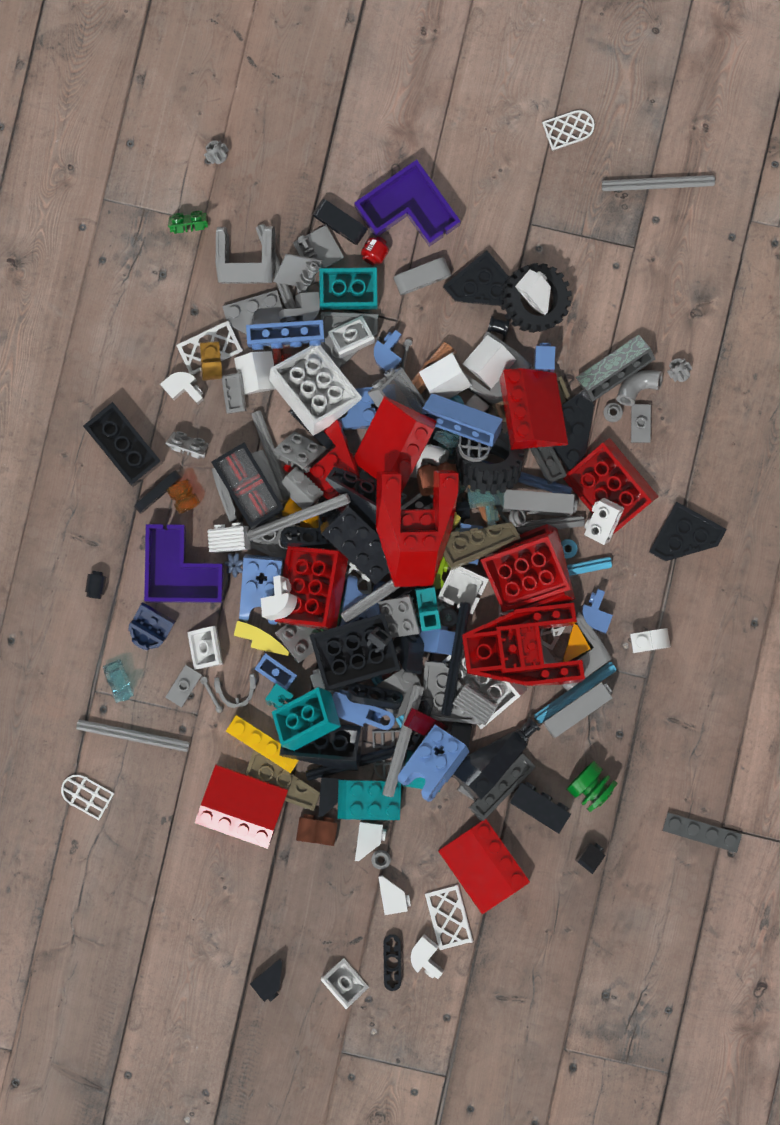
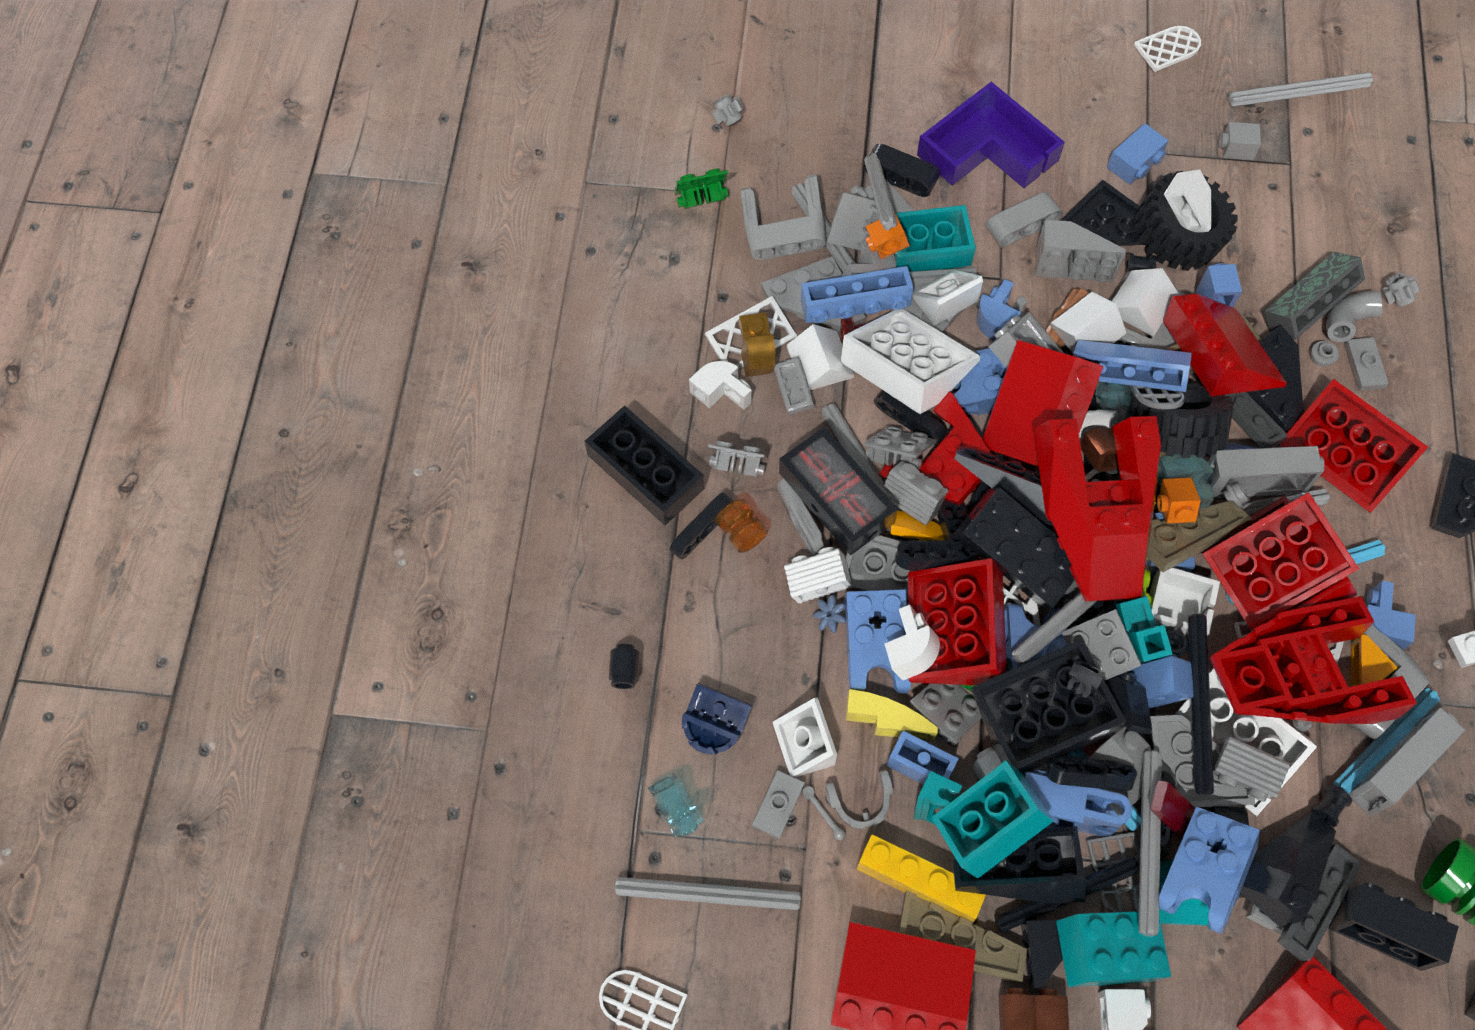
camera: 10 degrees left, 20 degrees down
(169, 577) = (748, 643): dark purple piece -> none
(299, 516) = (921, 522): light grey axle -> none
(313, 254) = (880, 192): none -> light grey axle
(313, 291) = (886, 241): none -> orange brick
(375, 251) = (955, 192): red head -> none
(442, 311) = (1075, 253): none -> light grey slope
(472, 521) = (1178, 500): none -> orange brick
(518, 230) = (1138, 154): none -> medium blue brick
(597, 227) = (1240, 141): none -> light grey brick
(603, 520) = (1360, 486): white brick -> none

